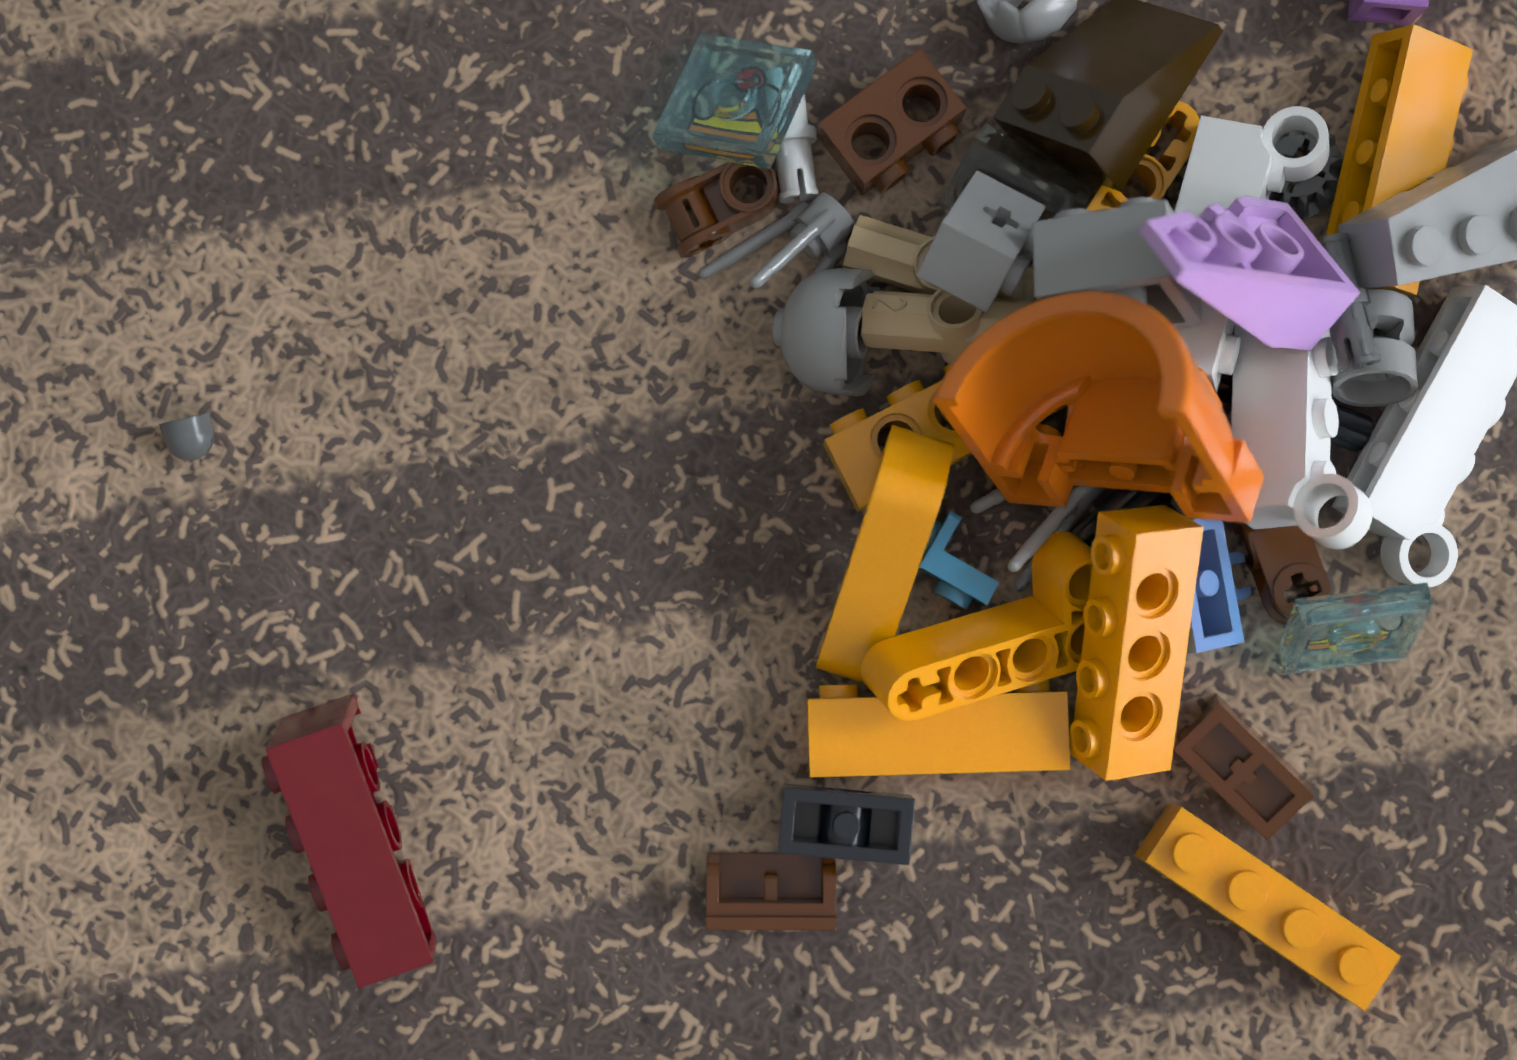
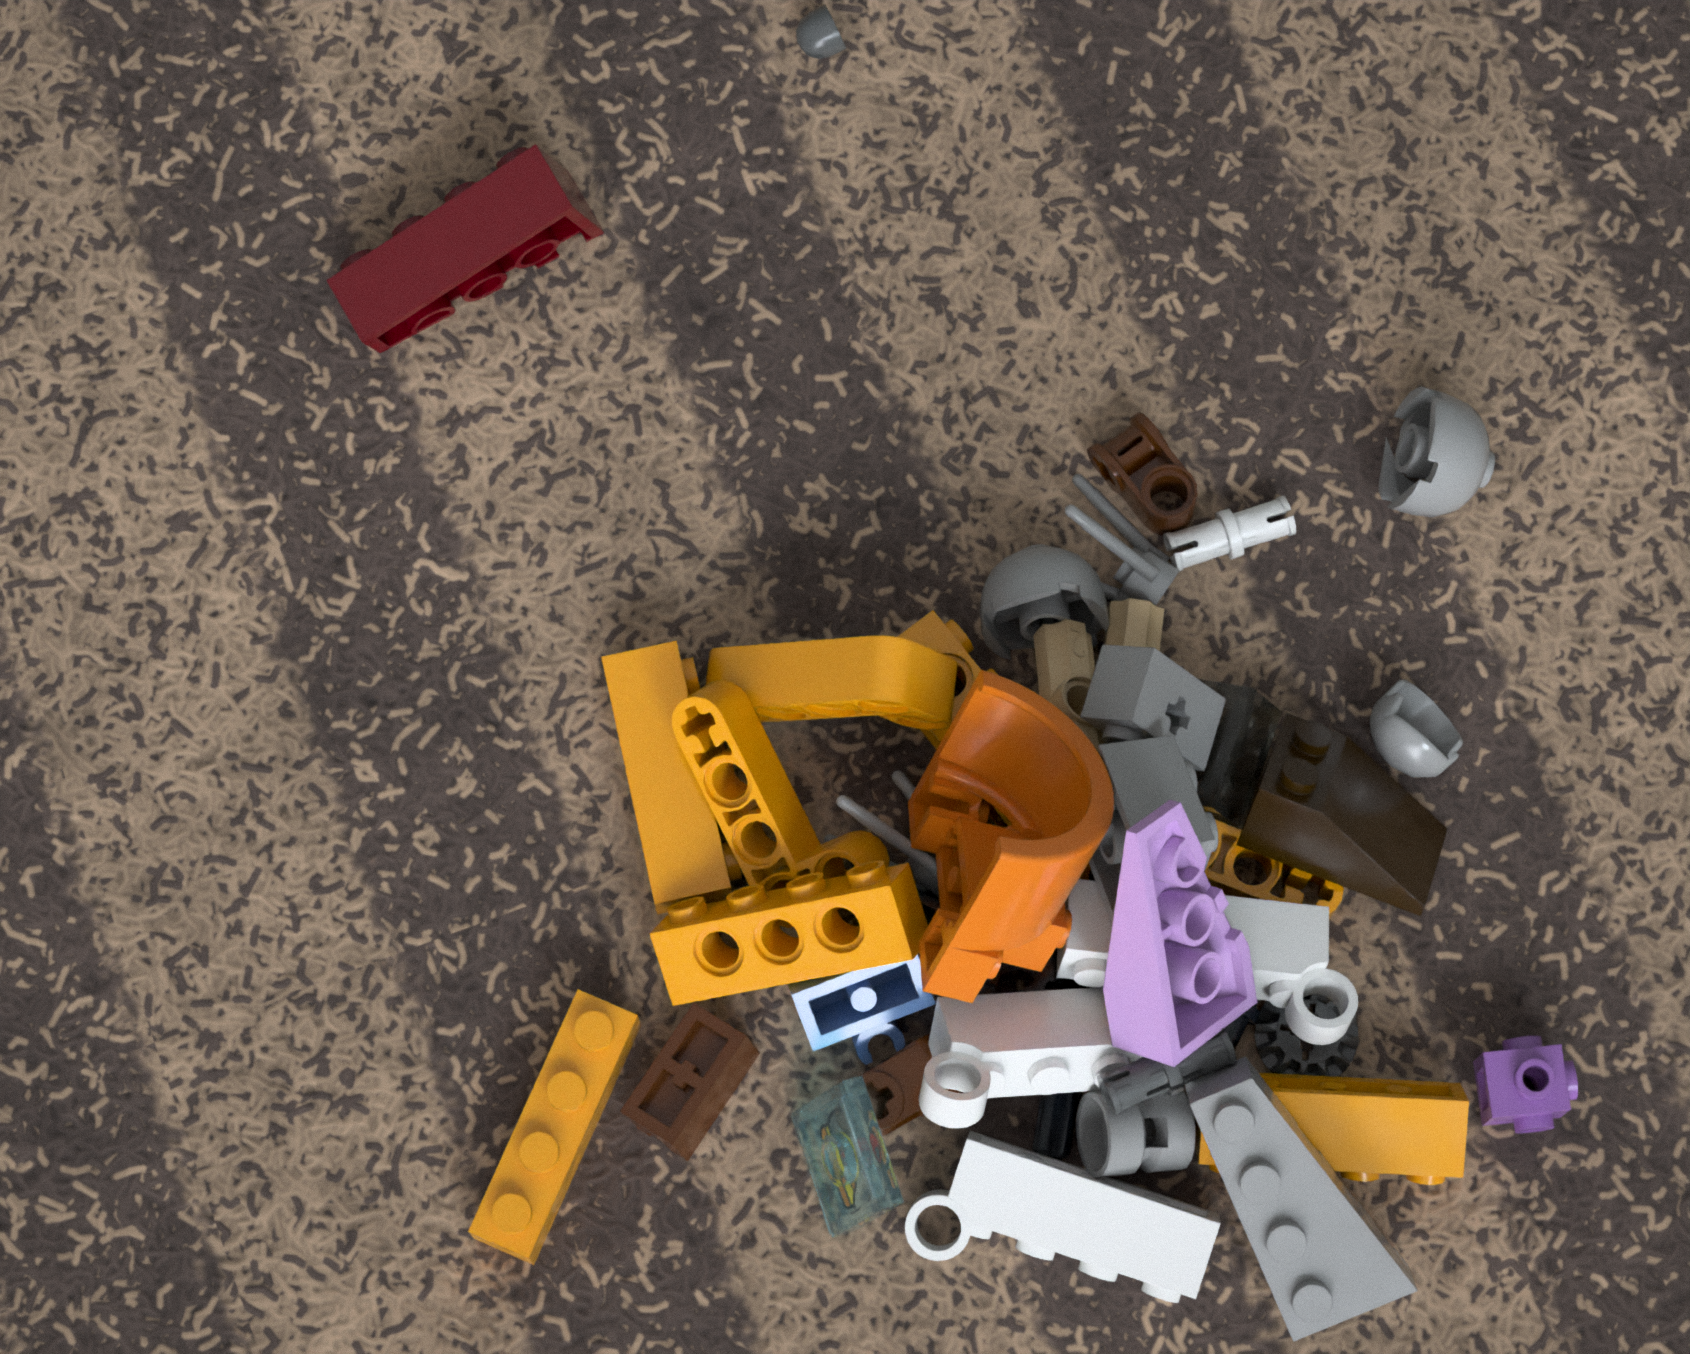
camera: 75 degrees right, 10 degrees down
(735, 100) = (1249, 466): clear light blue tile -> none
(770, 892) = (484, 649): reddish brown hinge -> none
(846, 824) = (562, 701): black brick -> none
(880, 113) = (1274, 613): reddish brown brick -> none
(956, 580) = (821, 769): dark azure bracket -> none

